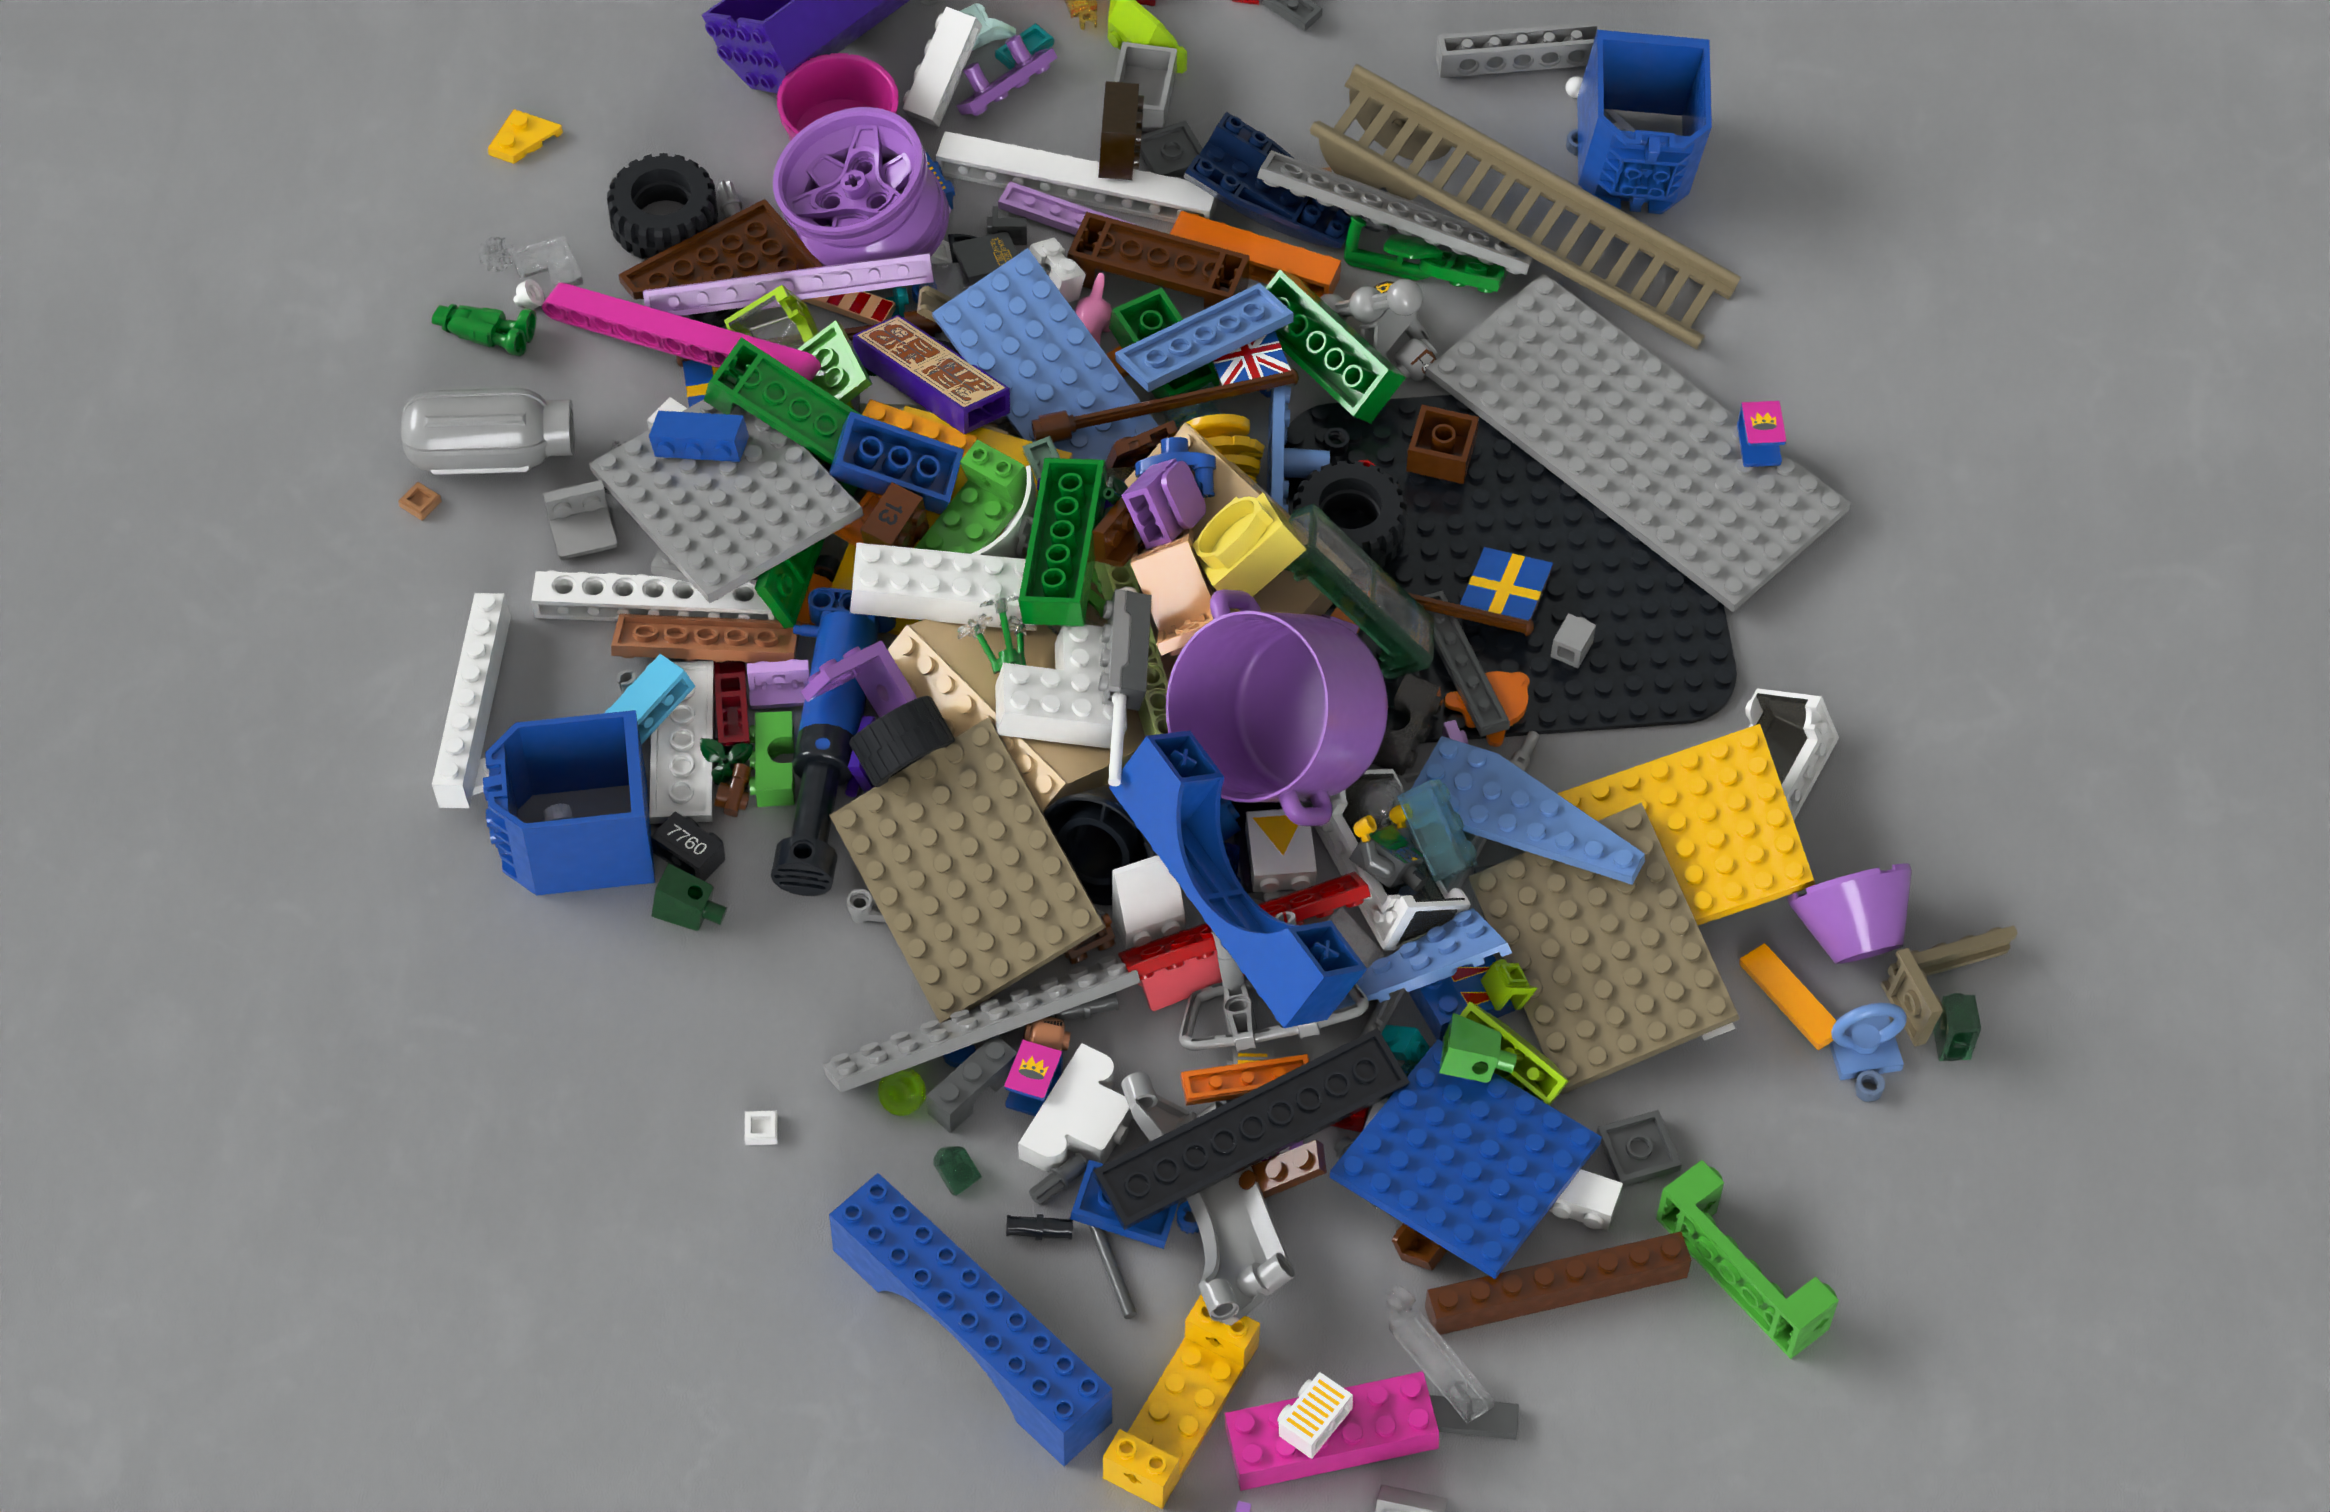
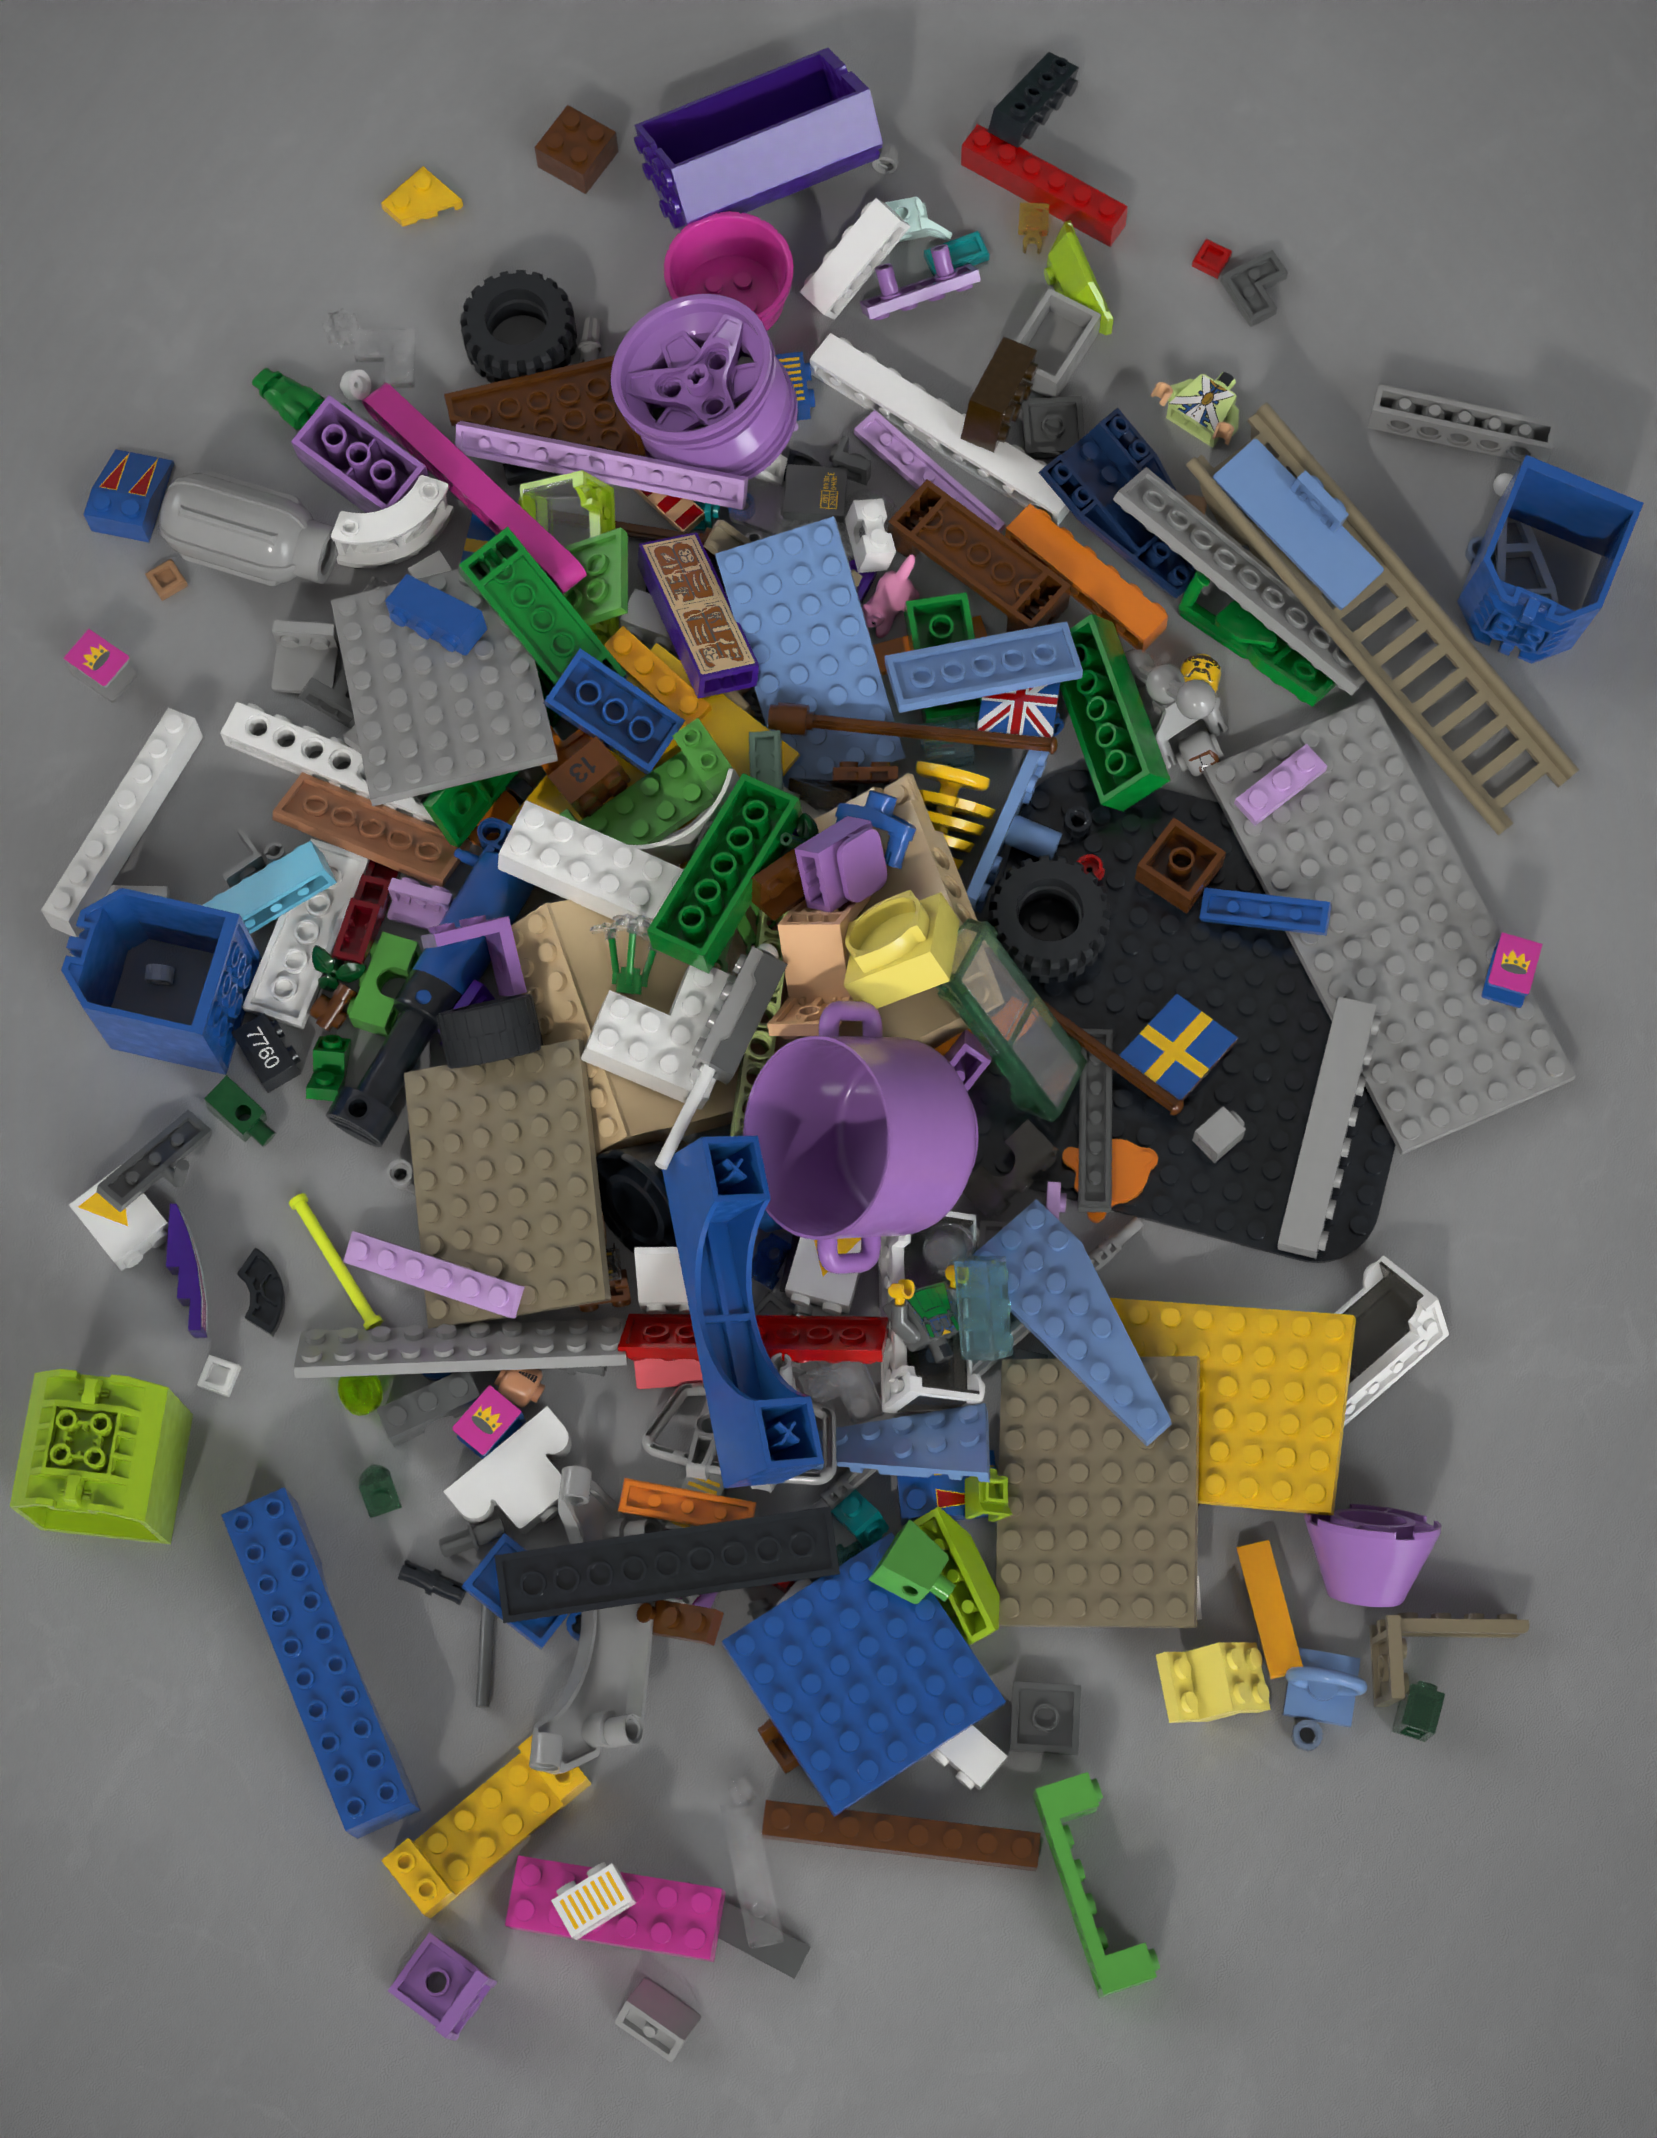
camera: 25 degrees right, 15 degrees up
(355, 444) = (128, 495): none -> blue slope
(391, 584) = (100, 666): none -> piece
(569, 346) = (356, 458): none -> medium lavender brick
(605, 698) = (248, 866): none -> light grey bracket
(612, 1025) = (124, 1233): none -> white brick
(621, 394) = (396, 531): none -> white fence
(624, 542) = (330, 701): none -> dark grey bracket
(629, 961) = (156, 1161): none -> dark grey plate
(649, 57) = (576, 149): none -> reddish brown brick
(691, 1043) = (184, 1261): none -> dark purple slope
(693, 1206) = (102, 1456): none -> lime container
(751, 842) = (329, 1067): none -> green slope
(773, 1045) = (265, 1290): none -> black tile
(774, 962) = (299, 1203): none -> neon yellow bar
(929, 969) = (434, 1274): none -> lavender plate
(1293, 99) = (1202, 406): none -> torso
(1426, 145) = (1300, 522): none -> medium blue bracket
(1498, 357) = (1280, 784): none -> lavender plate
(1532, 456) = (1265, 911): none -> blue plate
(1664, 604) = (1327, 1128): none -> light grey brick
(1772, 1064) = (1213, 1682): none -> light yellow bracket

